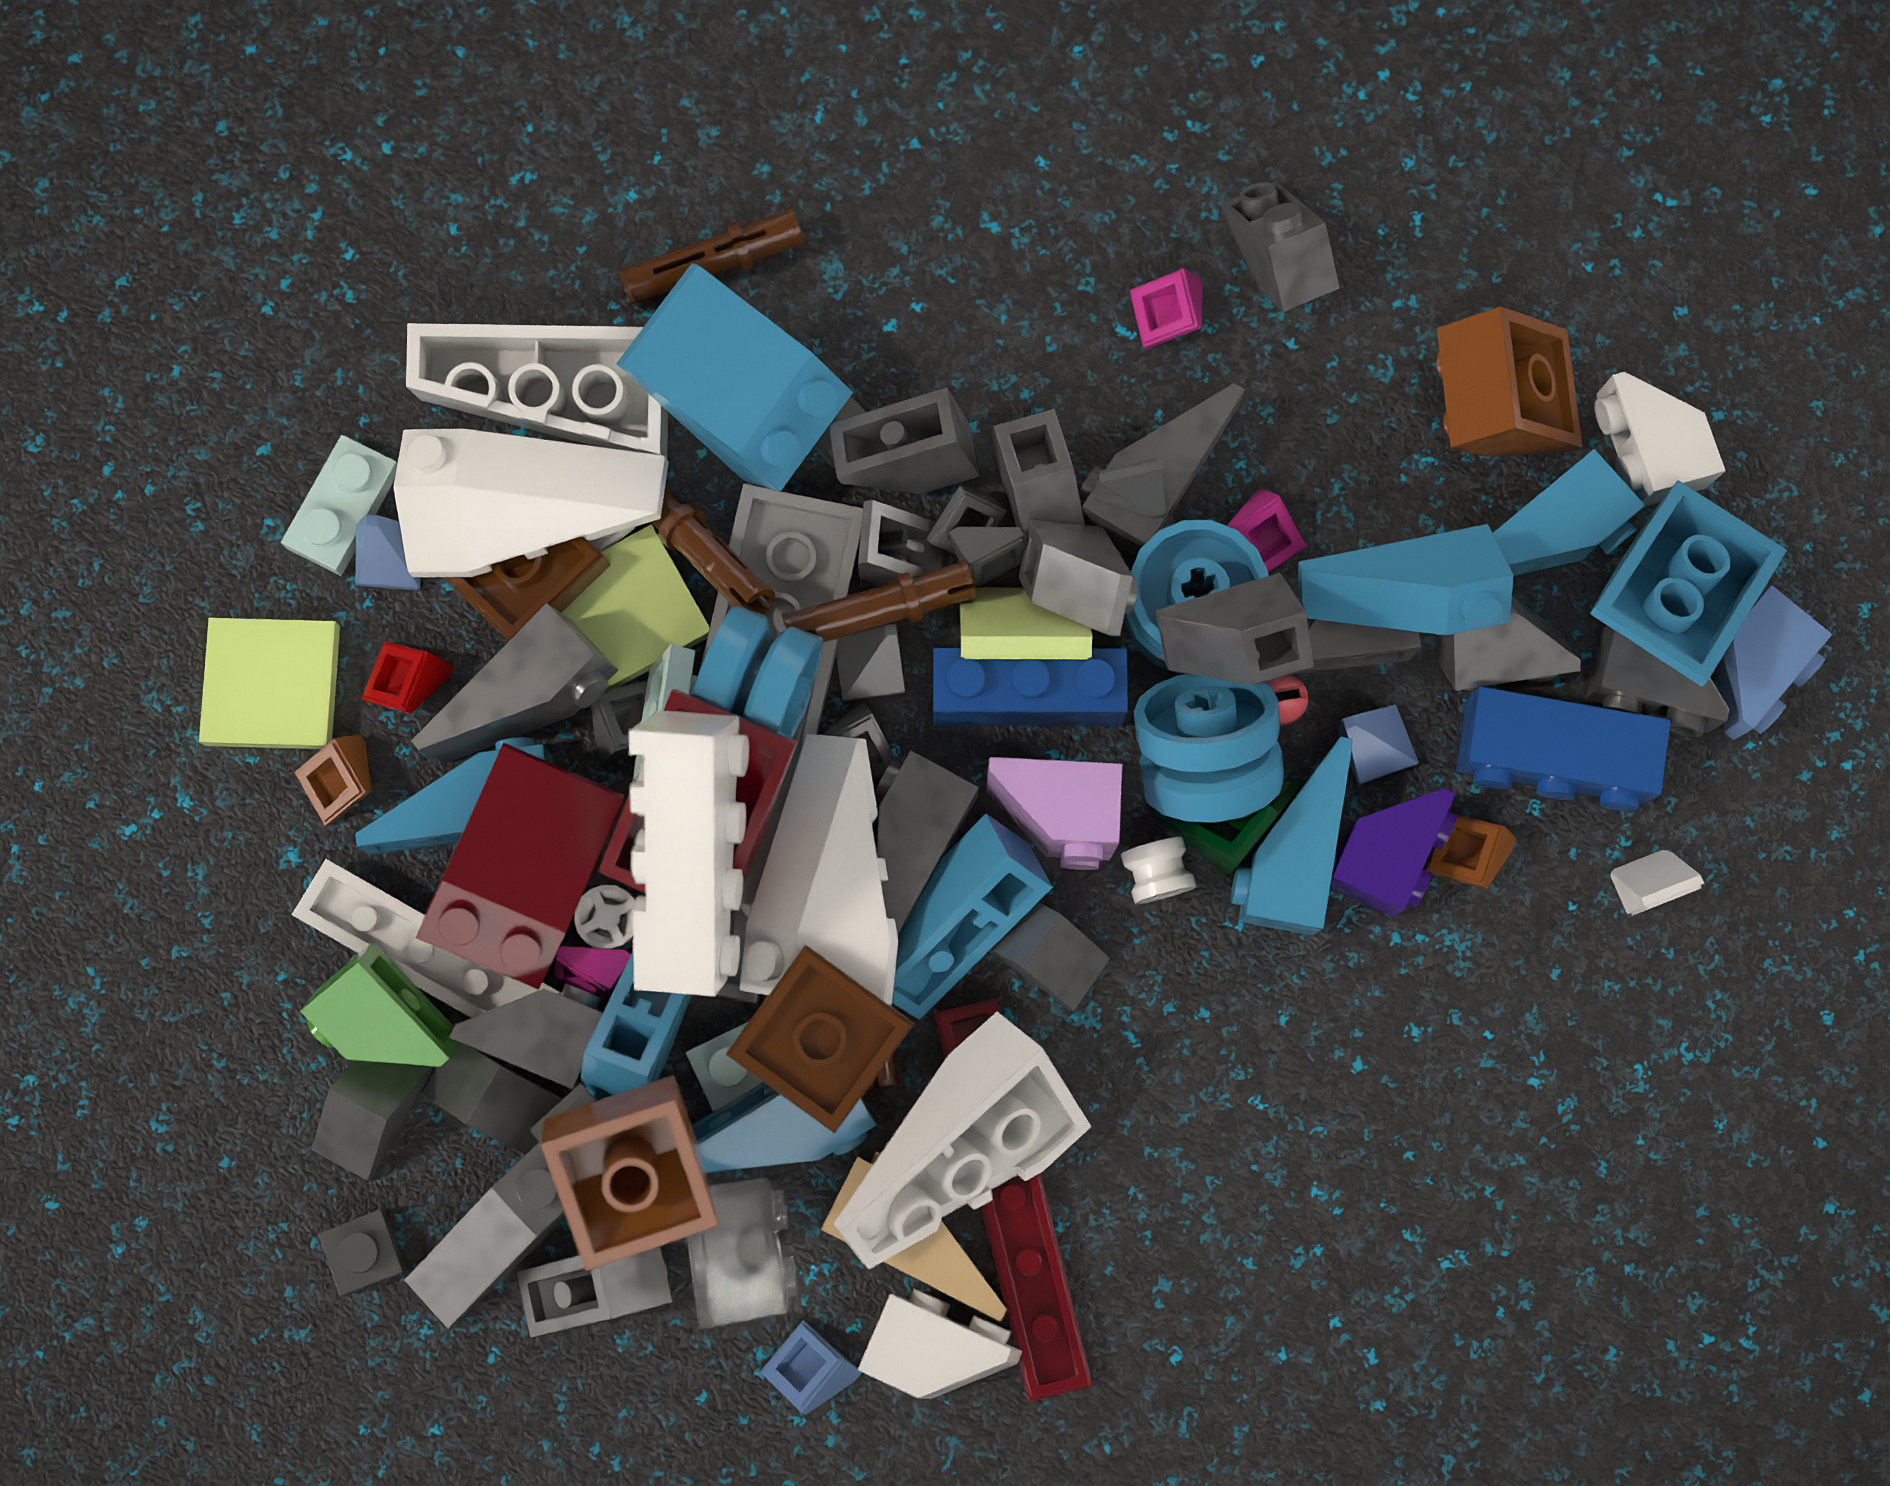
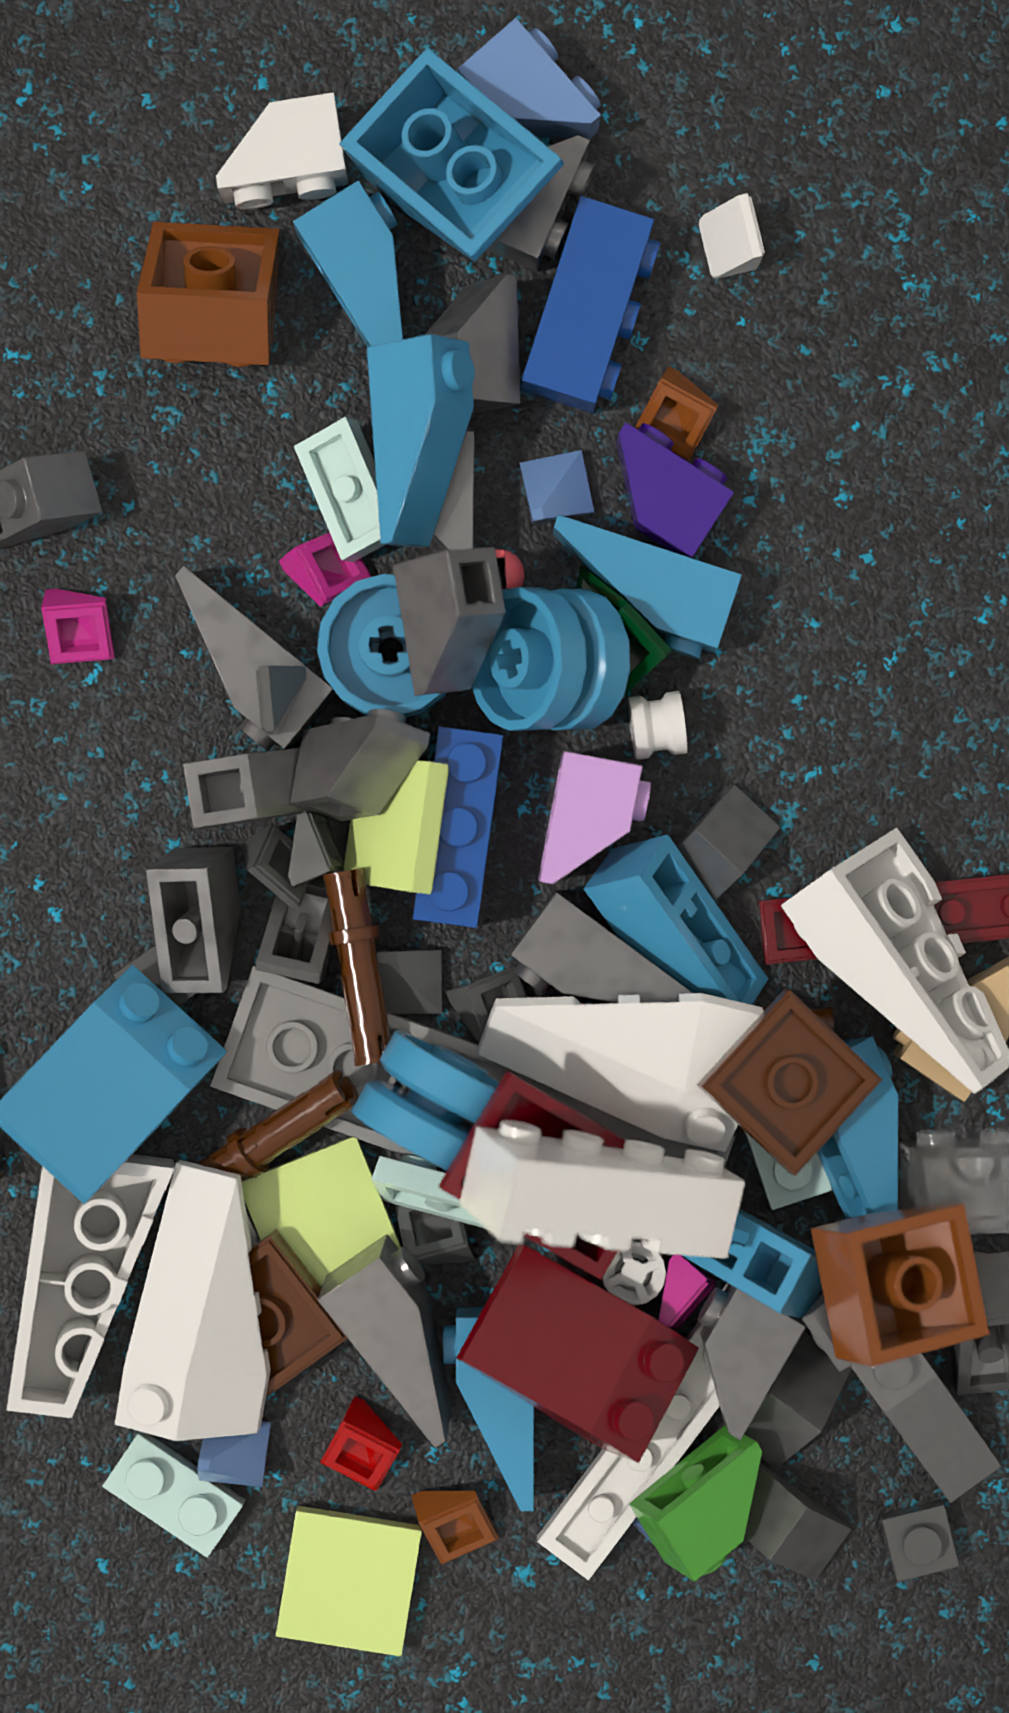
camera: 80 degrees left, 10 degrees up
(1353, 525) = (344, 486): none -> light aqua plate

